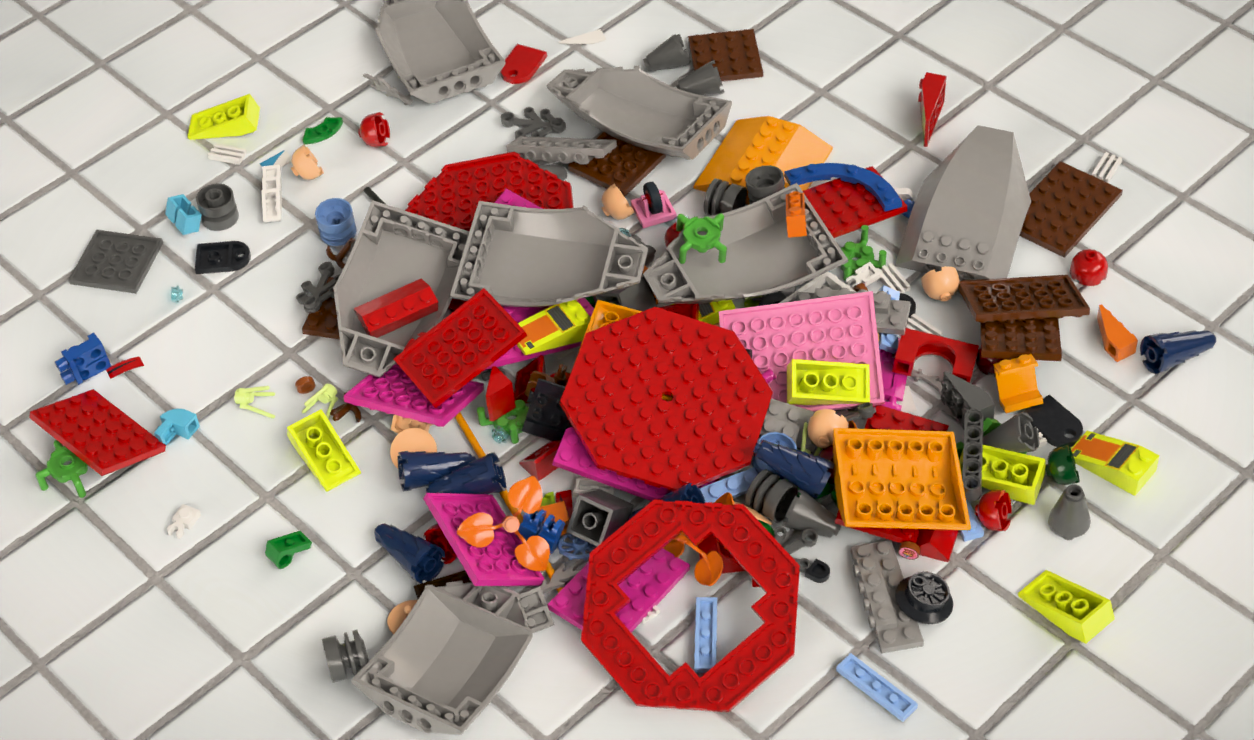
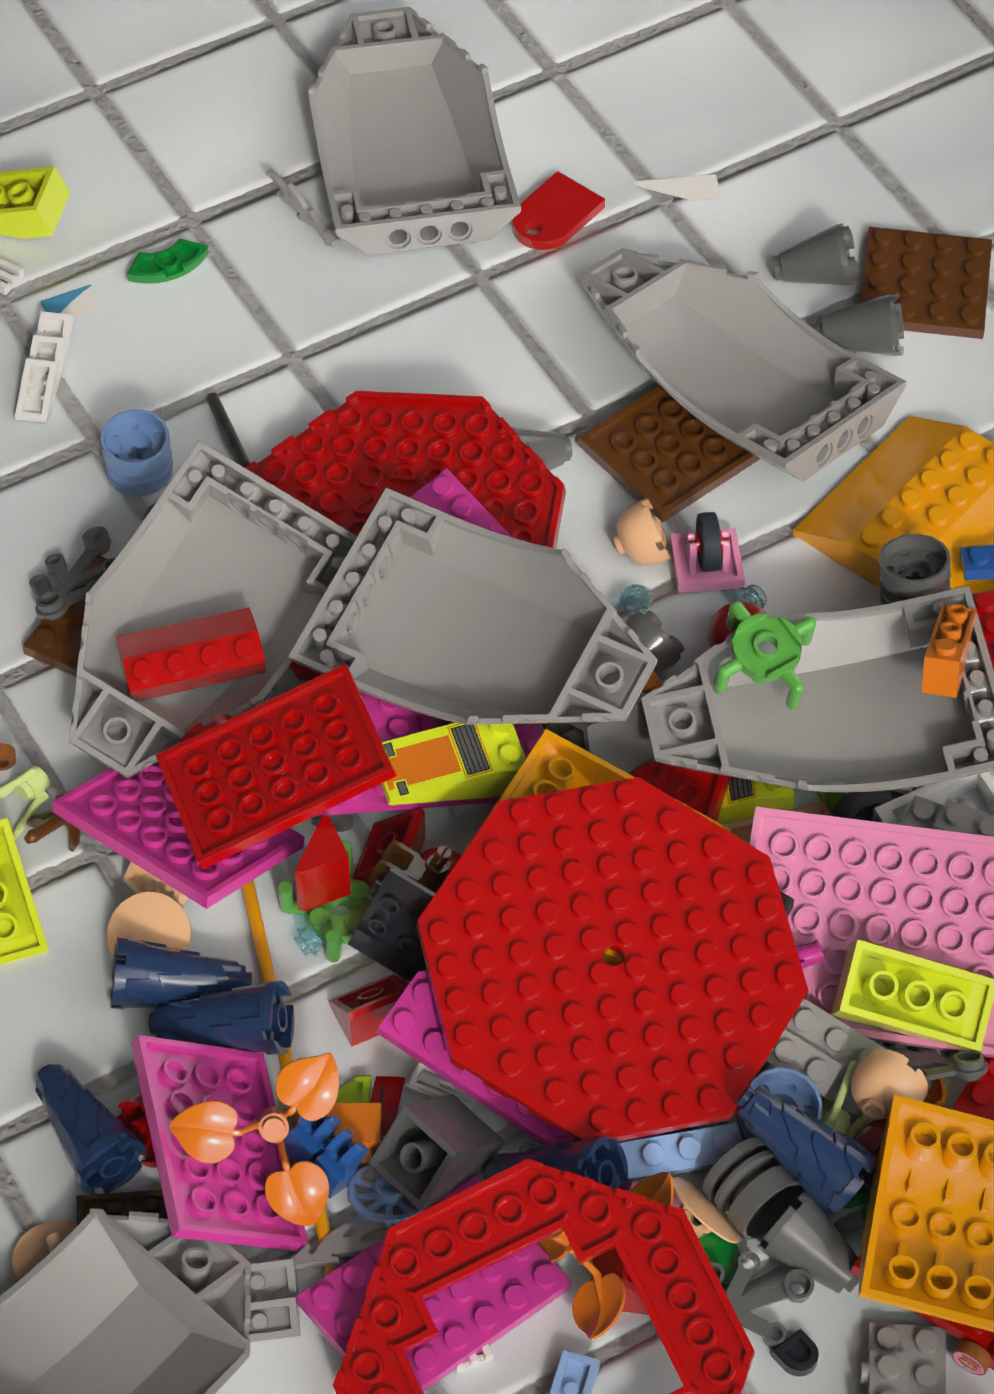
camera: 10 degrees right, 5 degrees up
(305, 164) = (117, 324): light nougat cylinder -> none
(340, 256) = (130, 518): reddish brown piece -> none
(374, 130) = (256, 286): red cylinder -> none
(553, 125) = (579, 350): dark grey plant -> none
(561, 149) = (573, 402): light grey plate -> none
(723, 197) = (837, 575): dark grey wheel -> none

